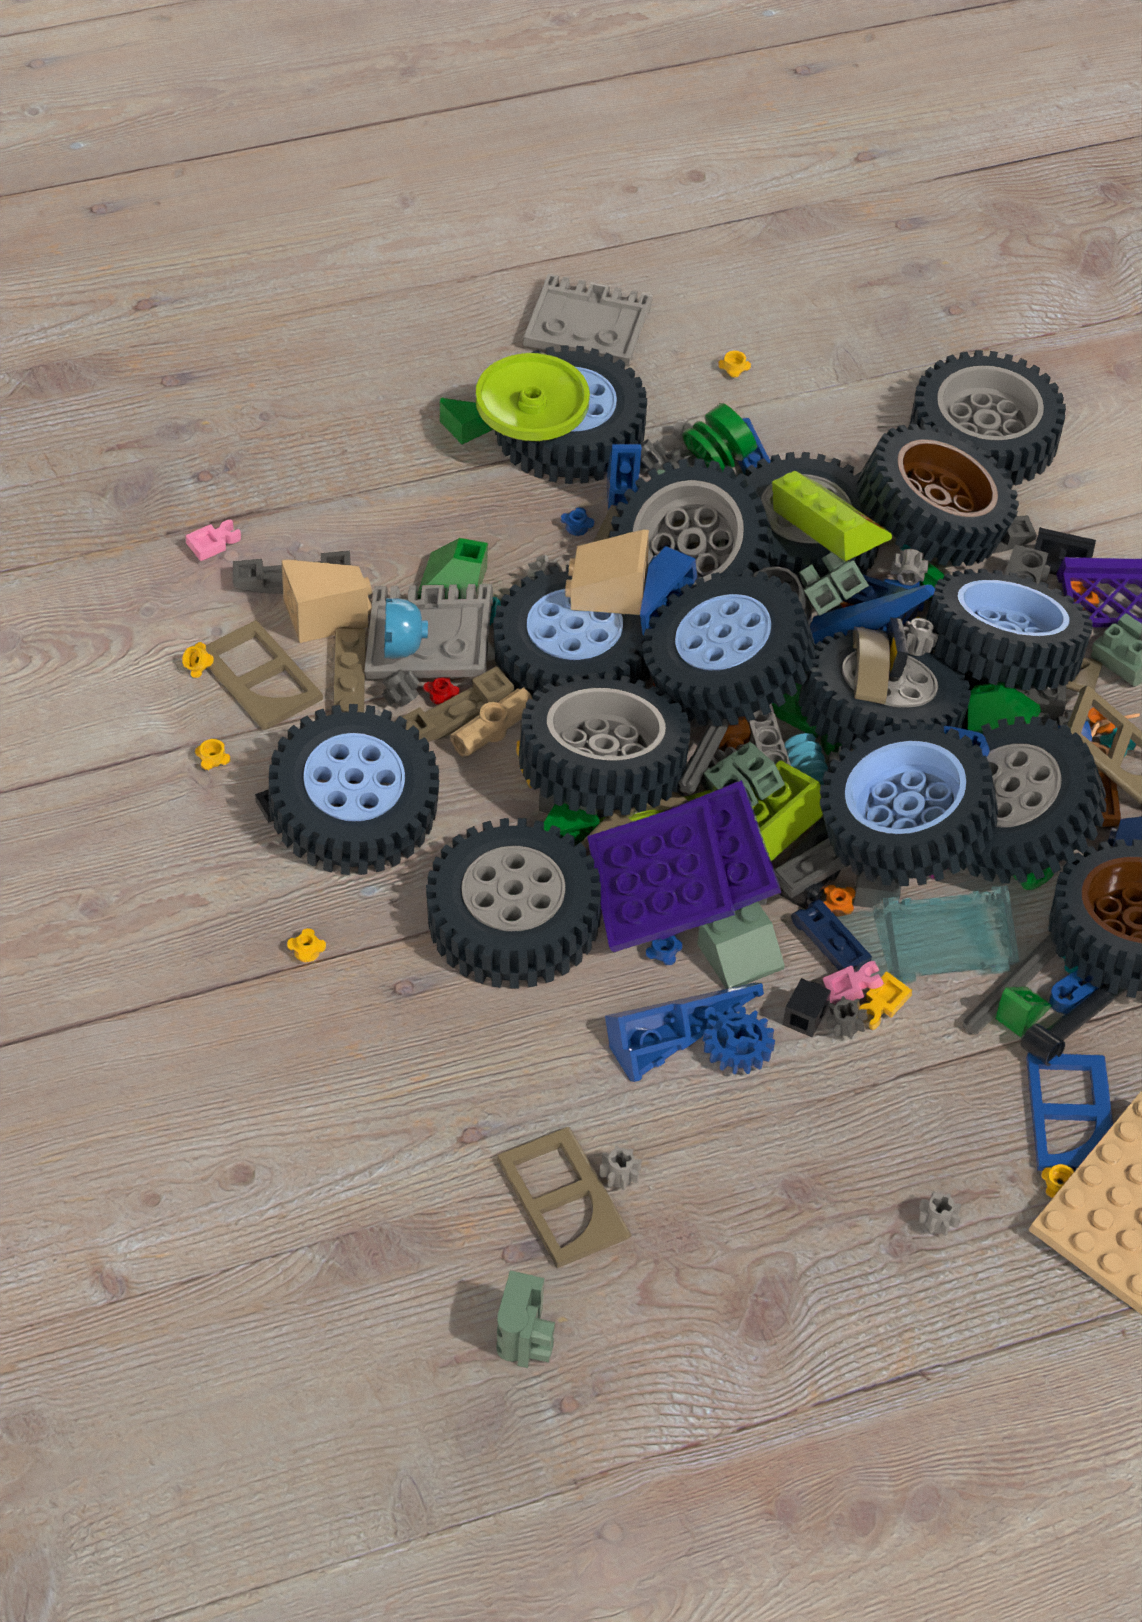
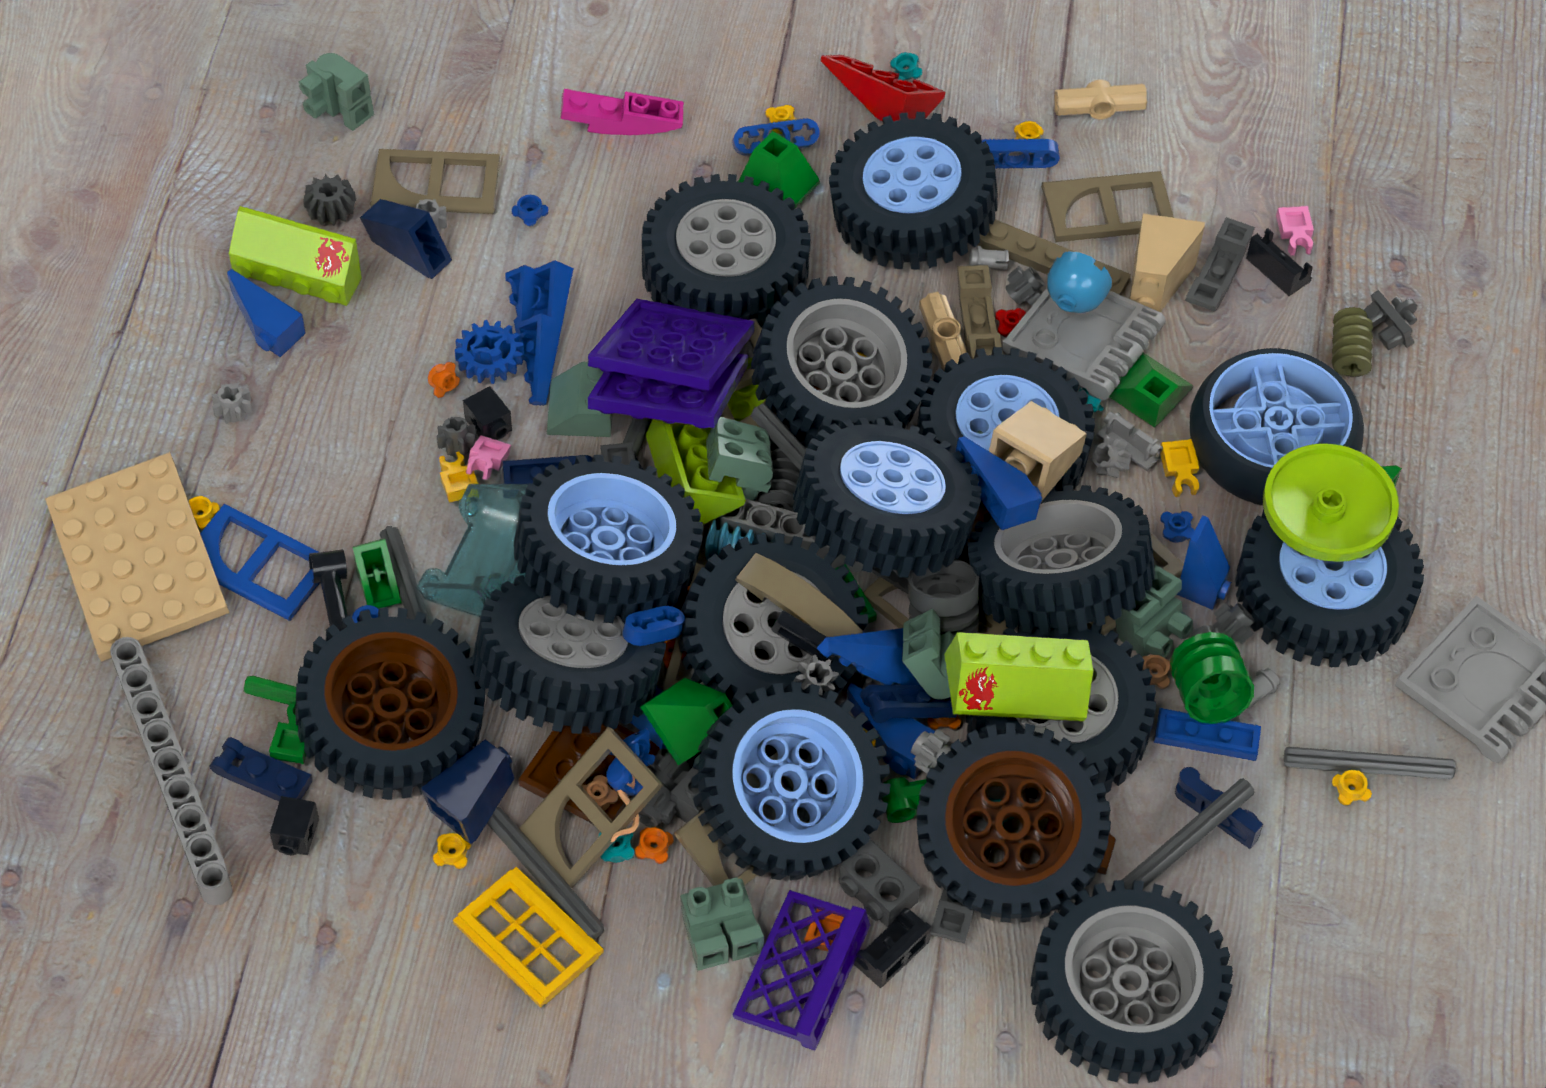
camera: 120 degrees right, 5 degrees up
(138, 715) = (1100, 99): none -> tan piece
(181, 867) = (906, 60): none -> teal plate
(191, 656) = (1145, 162): yellow plate -> none
(228, 866) = (882, 90): none -> red wedge
(244, 751) = (1044, 153): none -> blue beam
(261, 537) = (1277, 264): none -> black hinge
(275, 451) = (1397, 330): none -> dark grey hips
(324, 464) = (1352, 342): none -> olive piece
(336, 936) = (752, 132): none -> blue beam
(383, 1069) = (627, 116): none -> dark pink slope
(390, 914) = (782, 167): none -> green slope
(448, 480) = (1286, 406): none -> light blue wheel
(513, 568) = (1144, 448): none -> light grey hinge
(516, 537) = (1181, 461): none -> yellow plate
(553, 1088) = (529, 209): none -> blue plate
(654, 1264) = (329, 199): none -> dark grey gear
(657, 1172) = (407, 235): none -> dark blue slope
(707, 361) = (1369, 762): none -> dark grey axle
(753, 1245) = (295, 256): none -> lime slope
(792, 1061) = (443, 378): none -> orange plate
(810, 422) = (1195, 793): none -> dark blue plate
(830, 1237) = (269, 319): none -> blue slope
(841, 412) = (1190, 834): none -> dark grey axle

